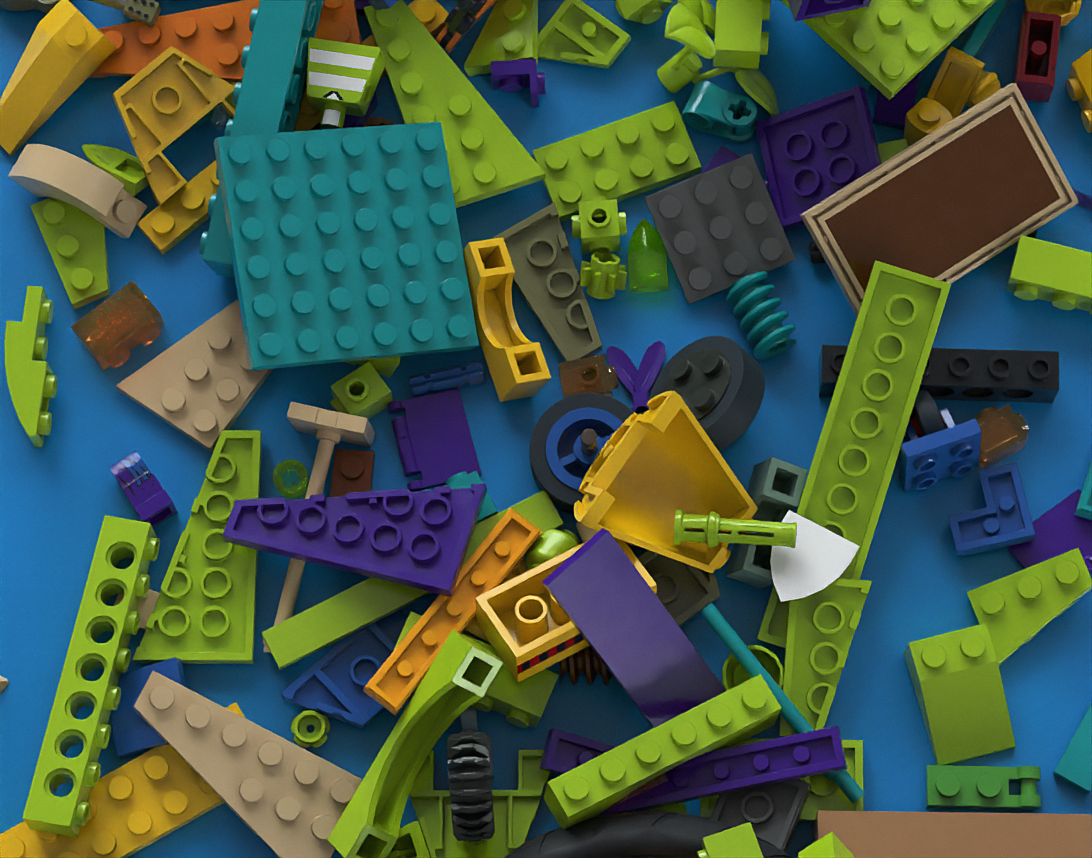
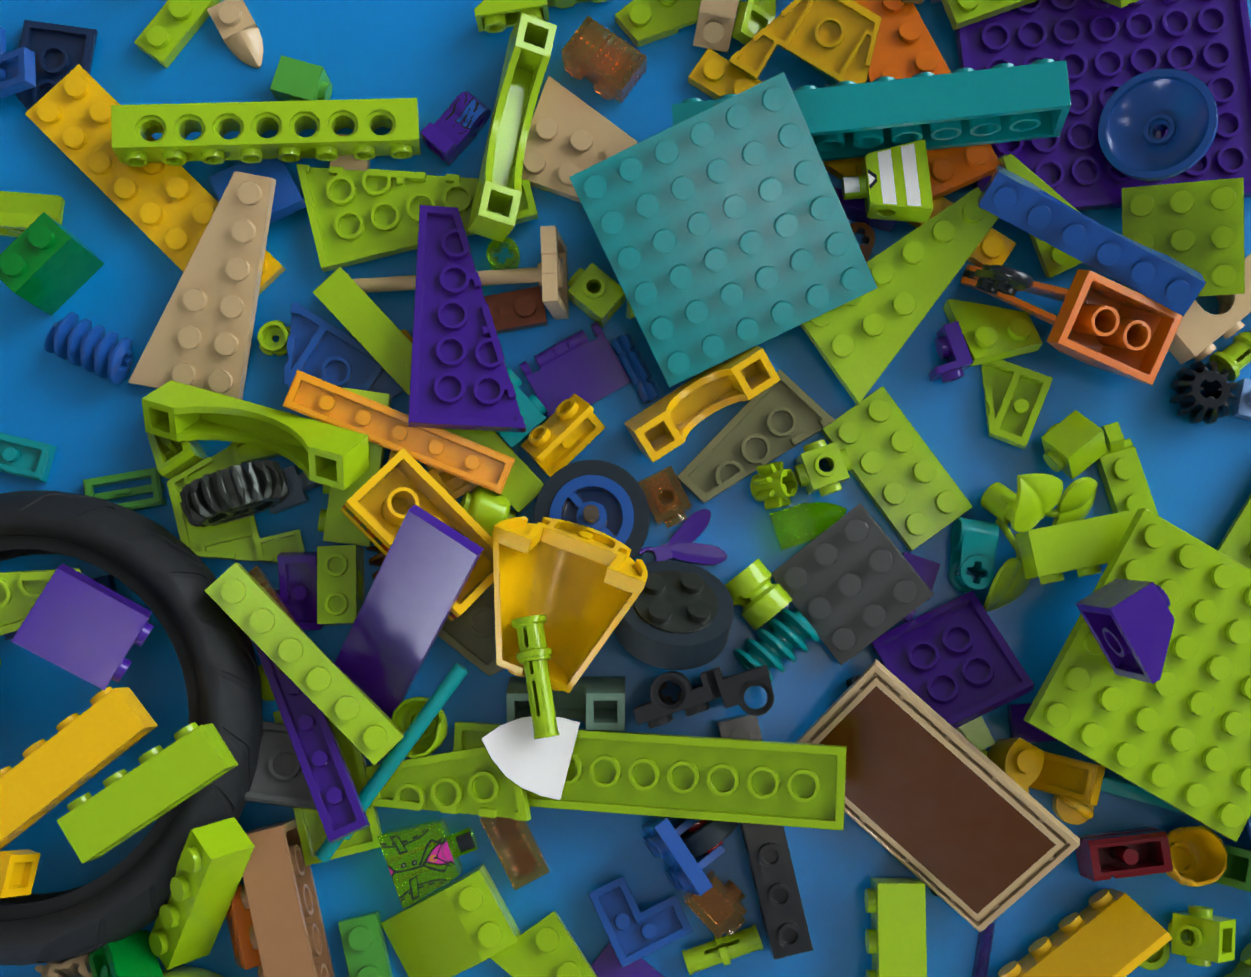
camera: 70 degrees right, 10 degrees up
(47, 634) = (300, 81): none -> bright green brick
(228, 454) = (500, 174): none -> lime arch
(496, 461) = (563, 435): none -> yellow bracket
(589, 715) = (339, 584): none -> lime brick
(709, 317) = (757, 594): none -> lime wheel
(787, 393) = (697, 699): none -> black plate
(884, 701) = (424, 857): none -> clear neon green torso
(896, 613) = (516, 849): none -> clear orange plate
(1041, 443) = (722, 949): none -> lime pin

